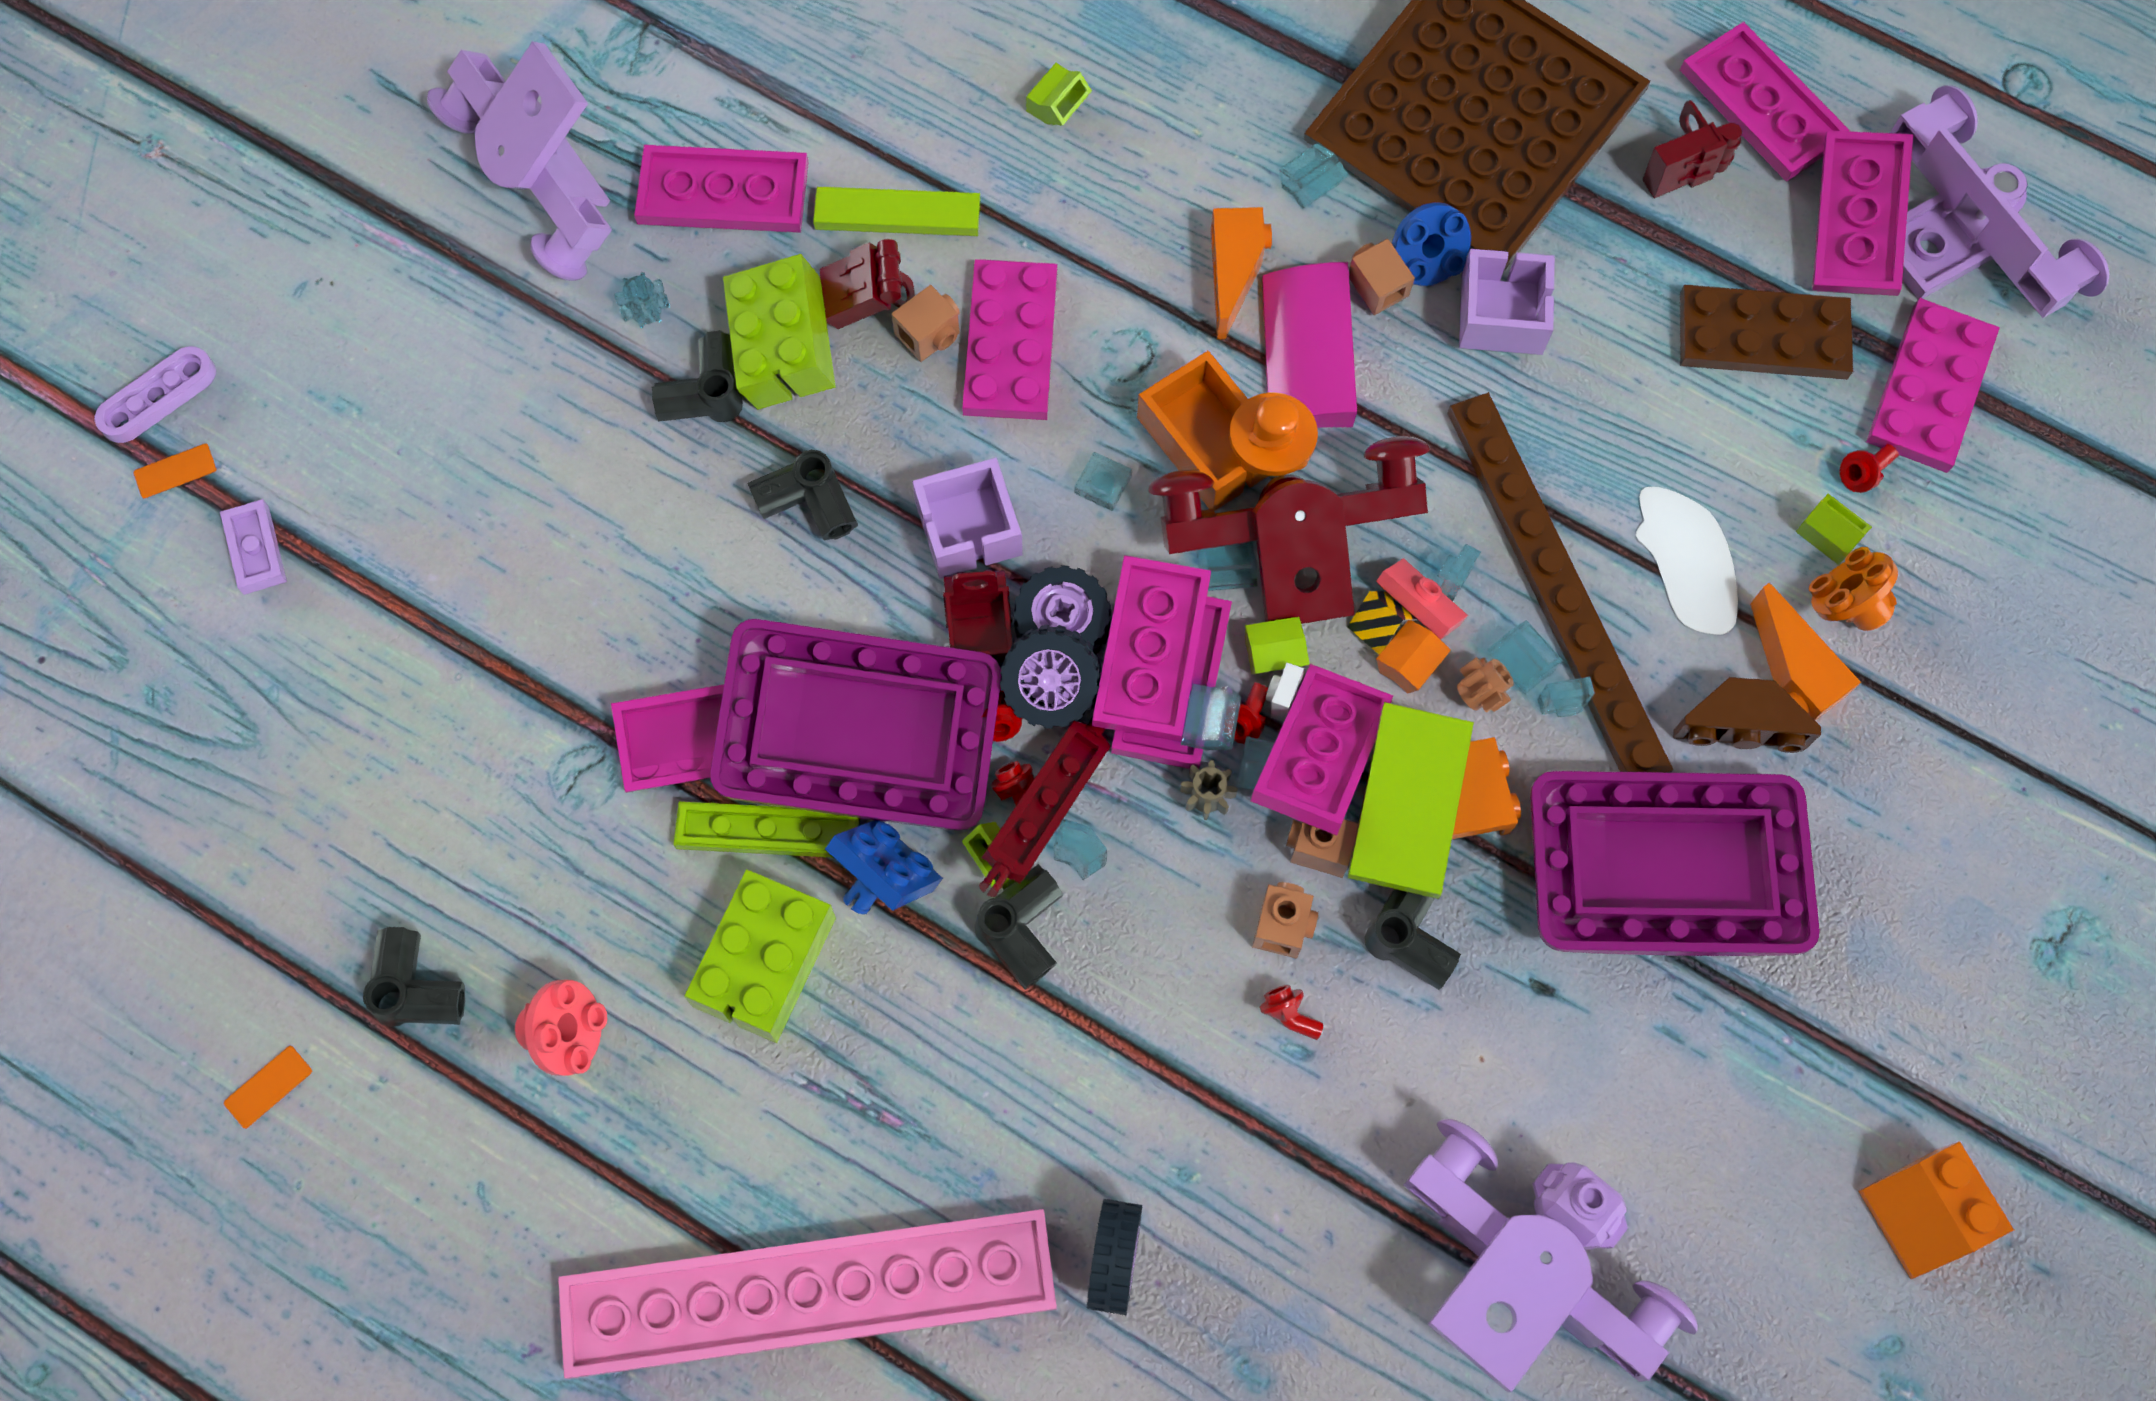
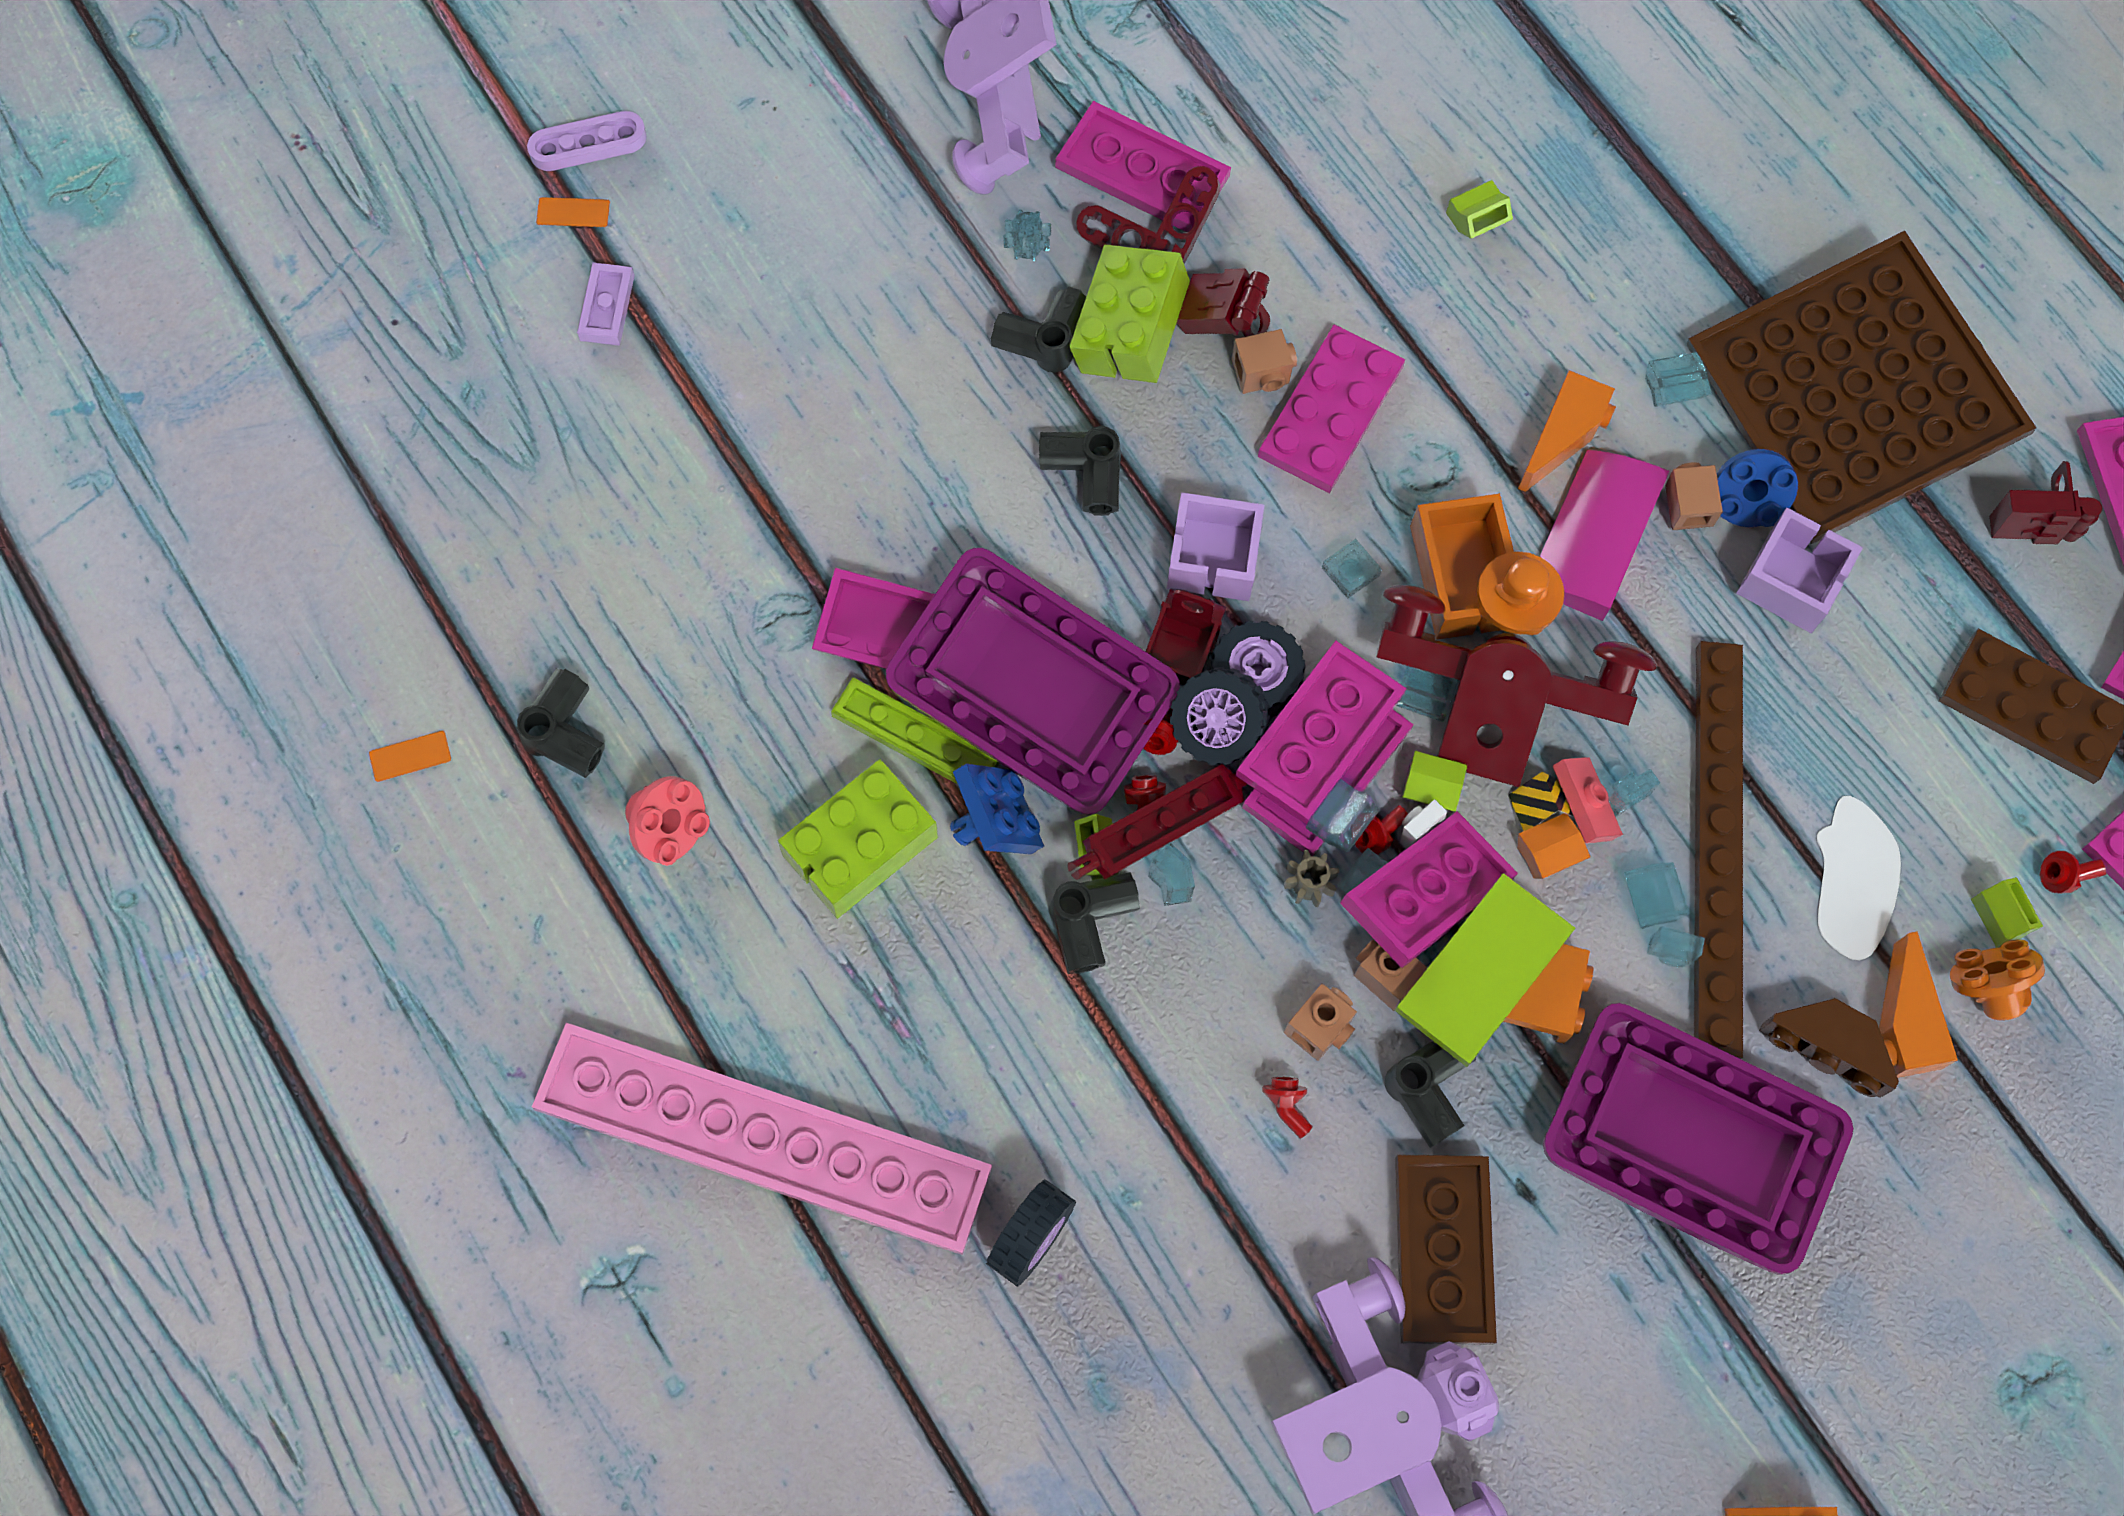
camera: 25 degrees right, 0 degrees up
(762, 253) = (1150, 239): none -> dark red beam
(897, 211) = (1287, 252): lime tile -> none
(1485, 684) = (1606, 901): nougat gear -> none
(1499, 1077) = (1445, 1249): none -> reddish brown plate

